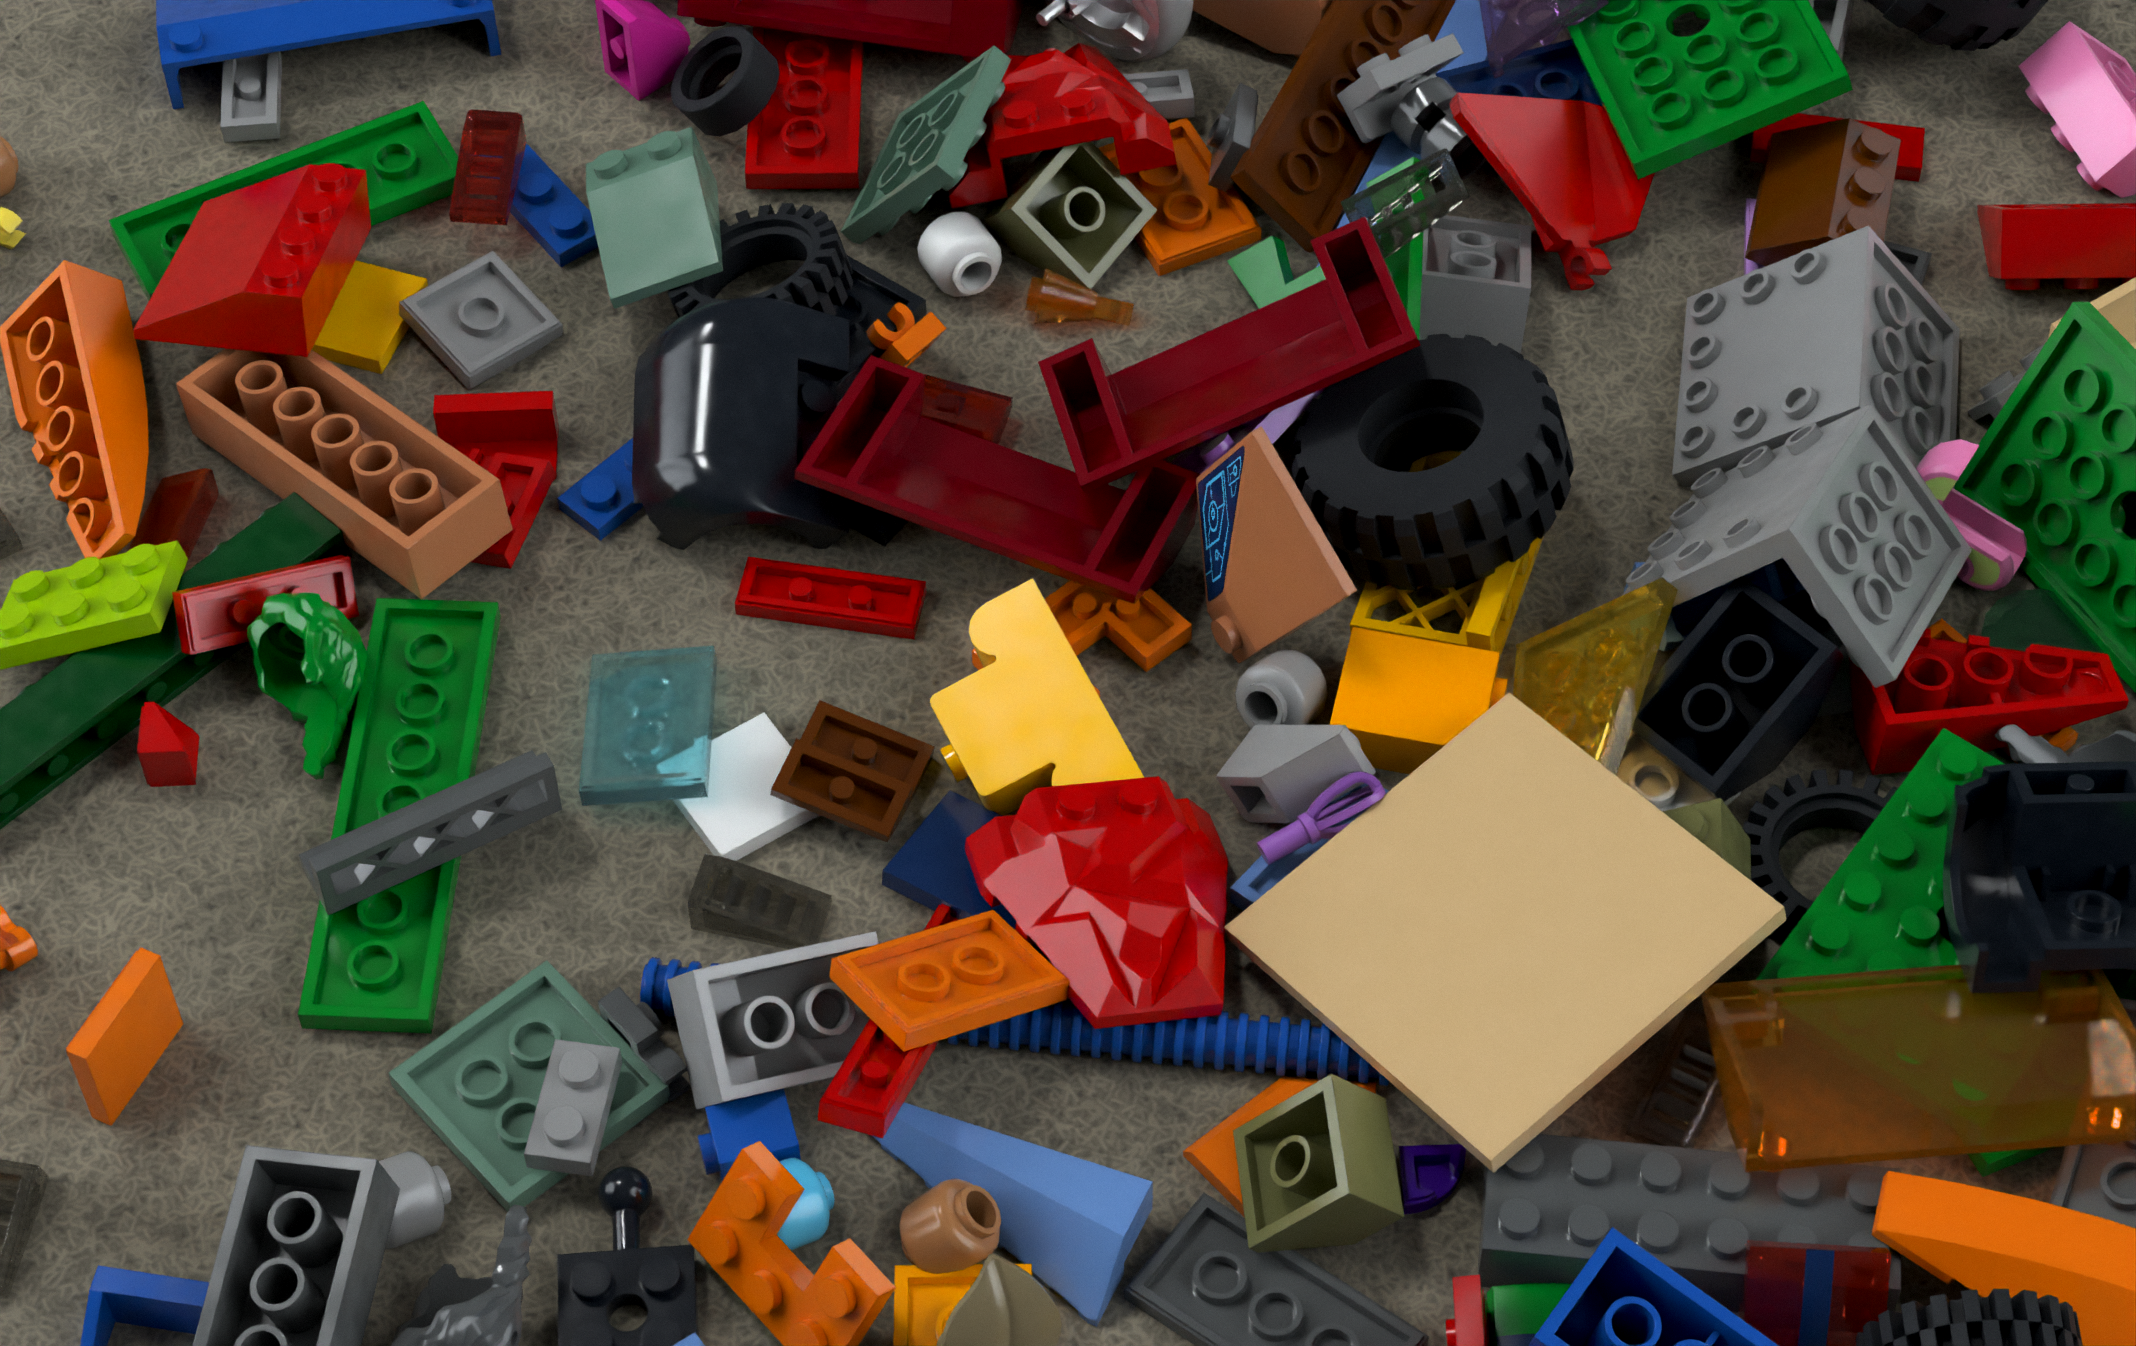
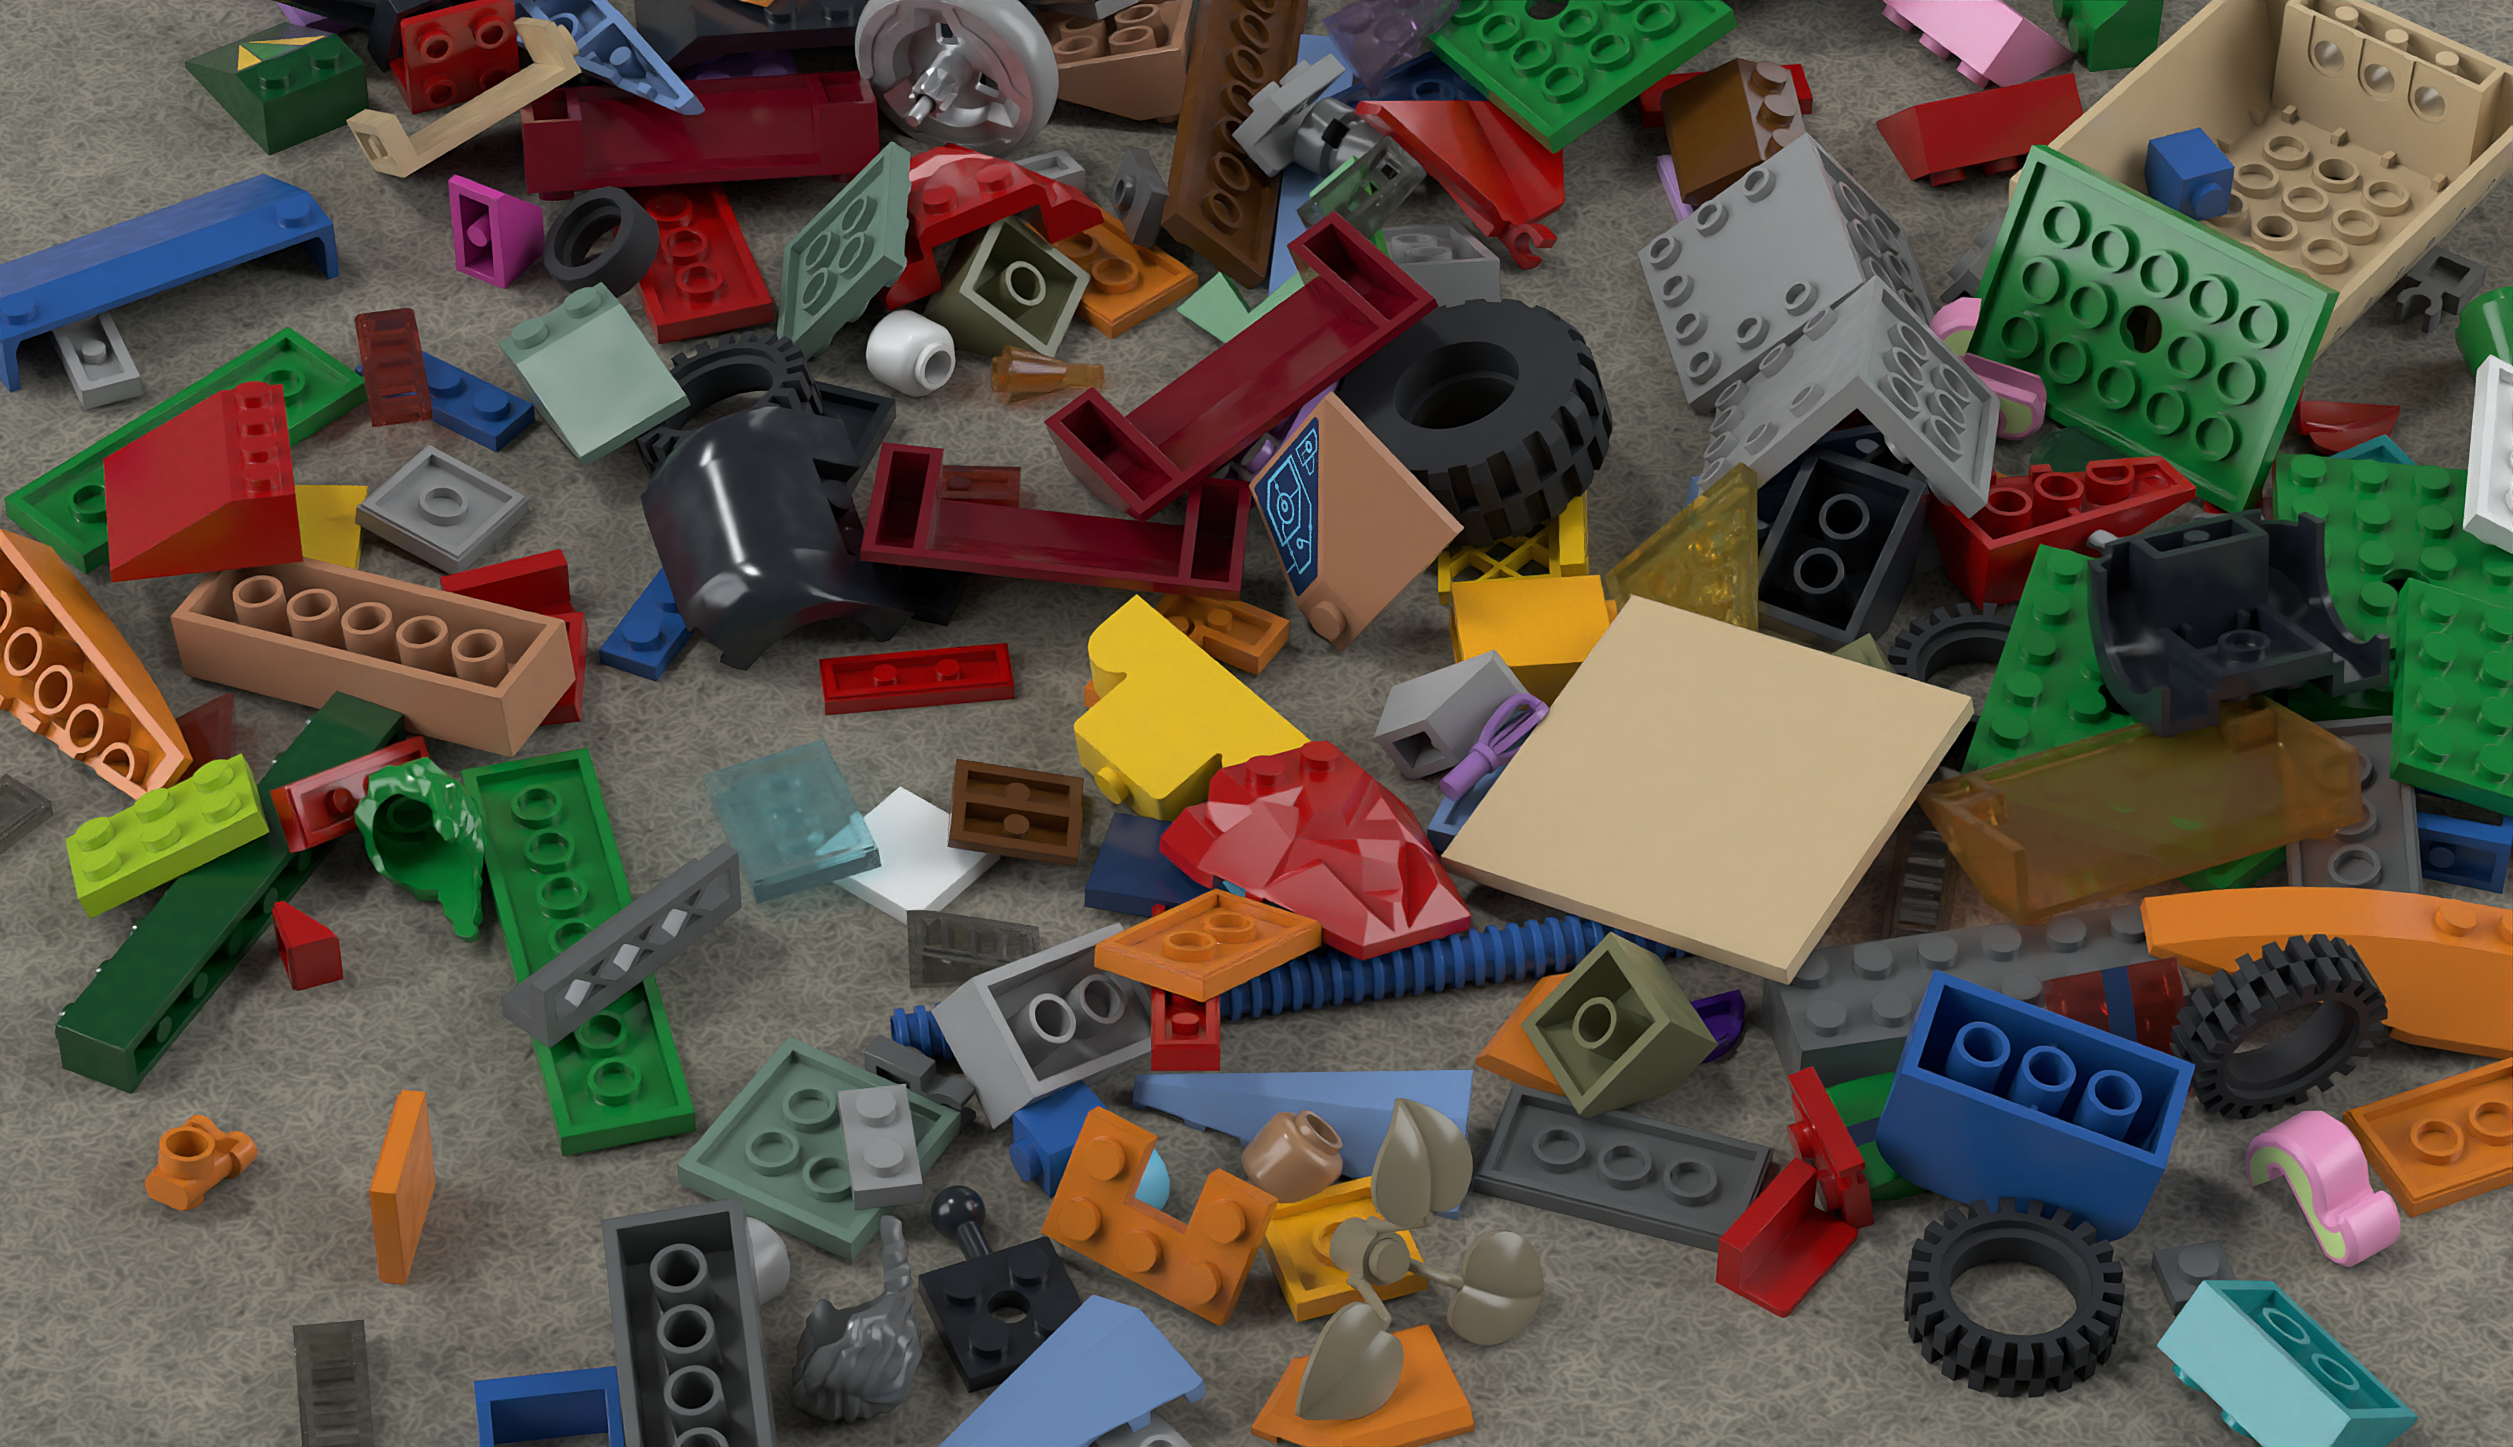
camera: 20 degrees left, 10 degrees down
(909, 340) = (889, 429): orange tile -> none
(1282, 690) = (1399, 652): light grey head -> none

